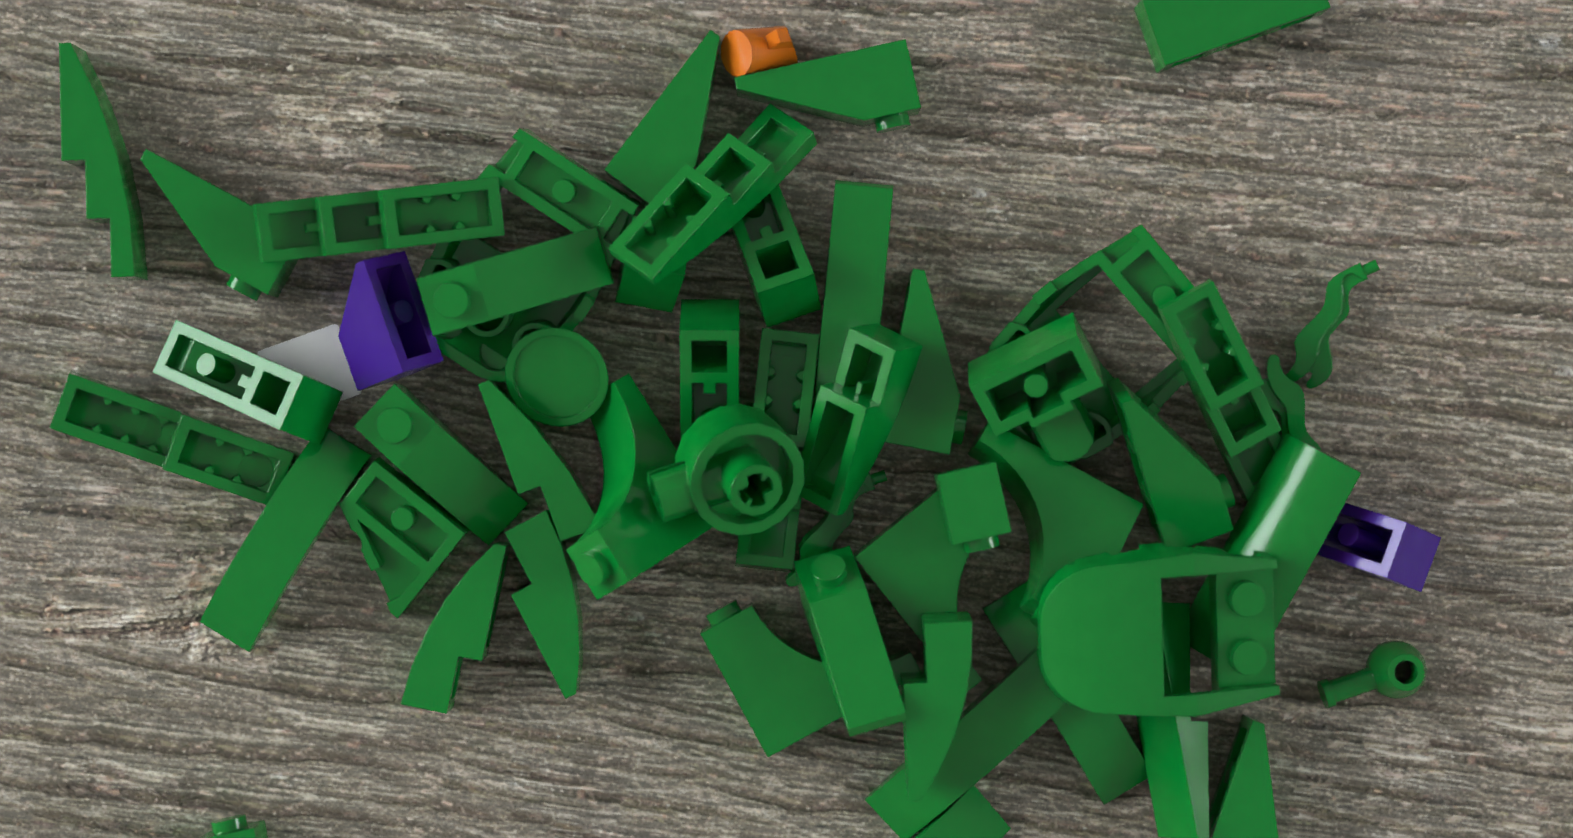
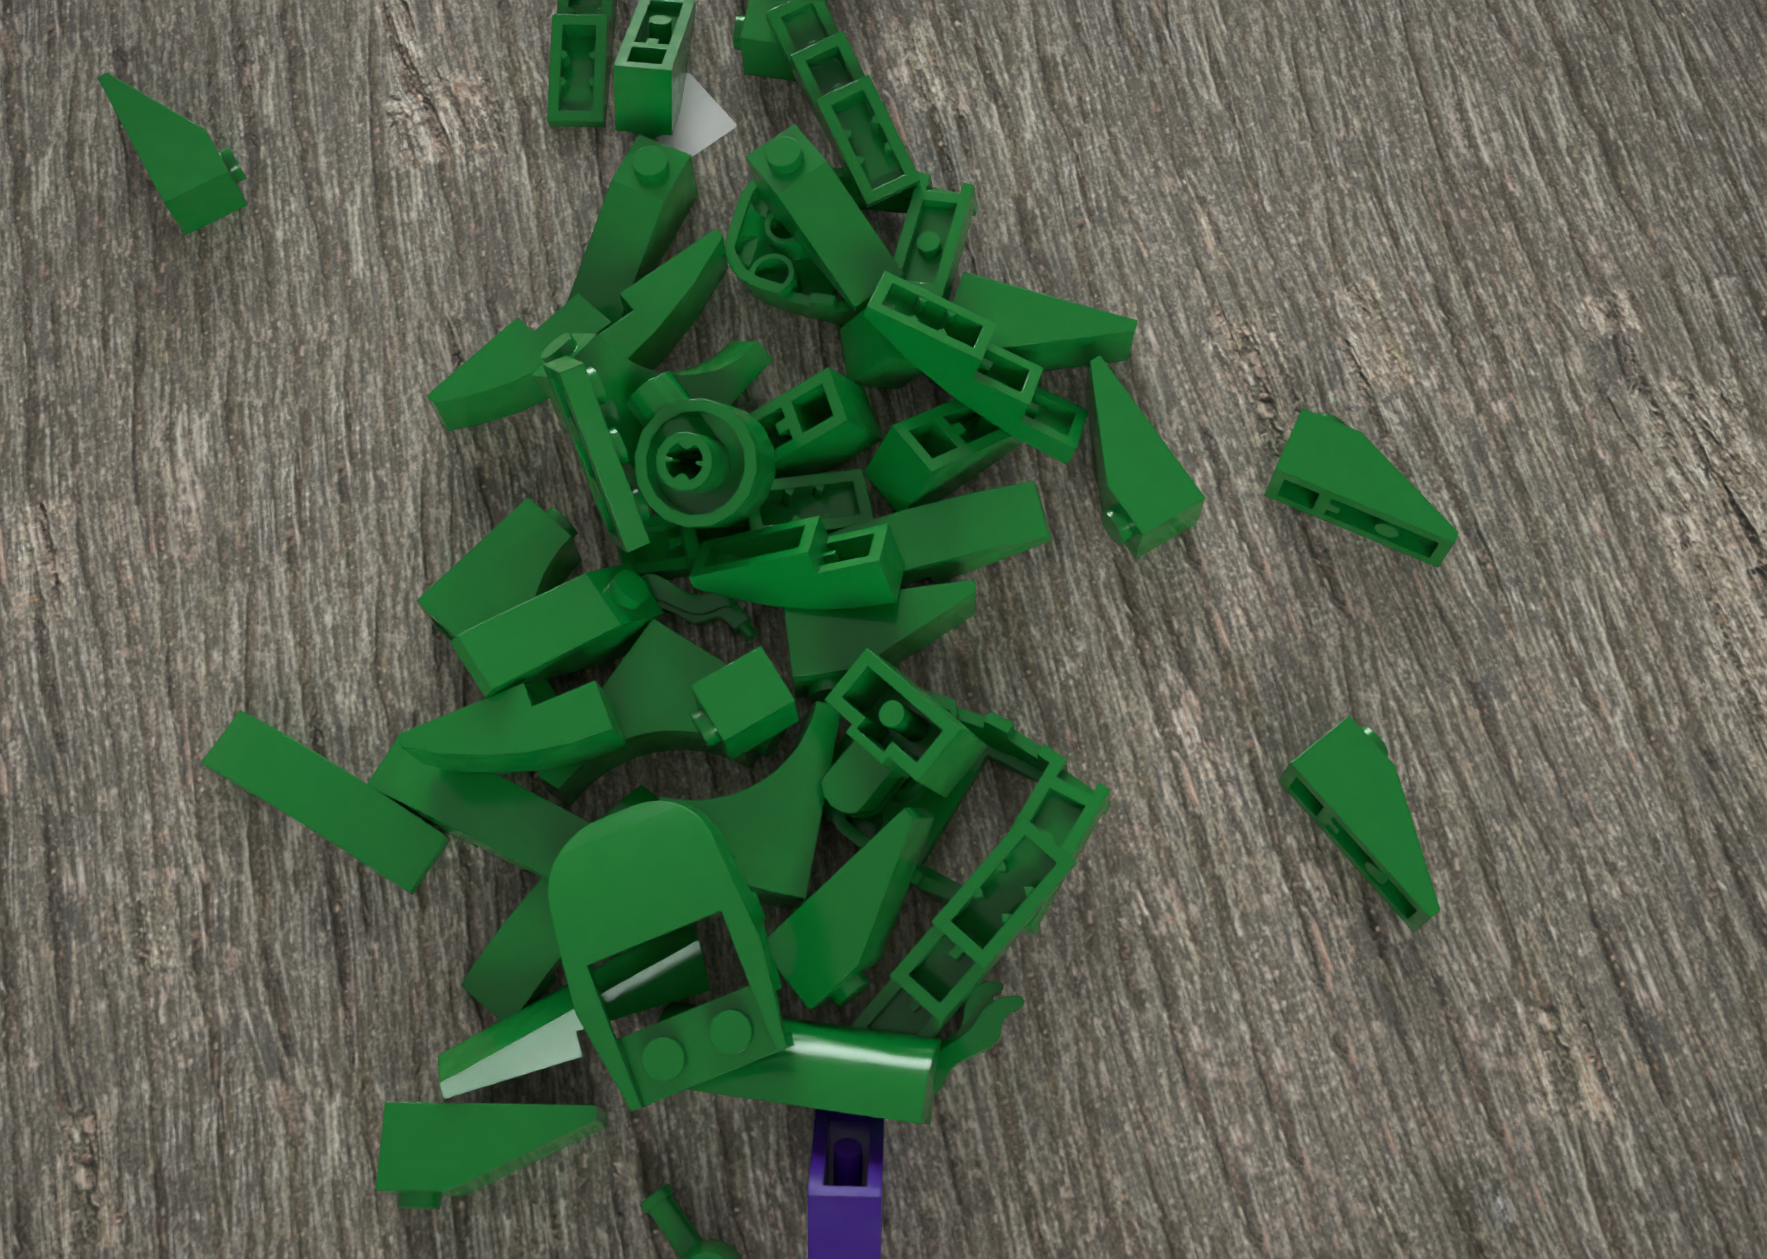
camera: 75 degrees right, 20 degrees down
(283, 538) = (519, 128): green slope -> none
(386, 323) = (728, 136): dark purple slope -> none
(400, 532) = (550, 224): green wing -> none
(457, 632) = (466, 292): green slope -> none
(556, 377) = (746, 295): green piece -> none
(701, 559) = (599, 451): none -> green plate
(757, 50) = (1139, 375): orange piece -> none
(1312, 342) = (1058, 1044): green hair -> none

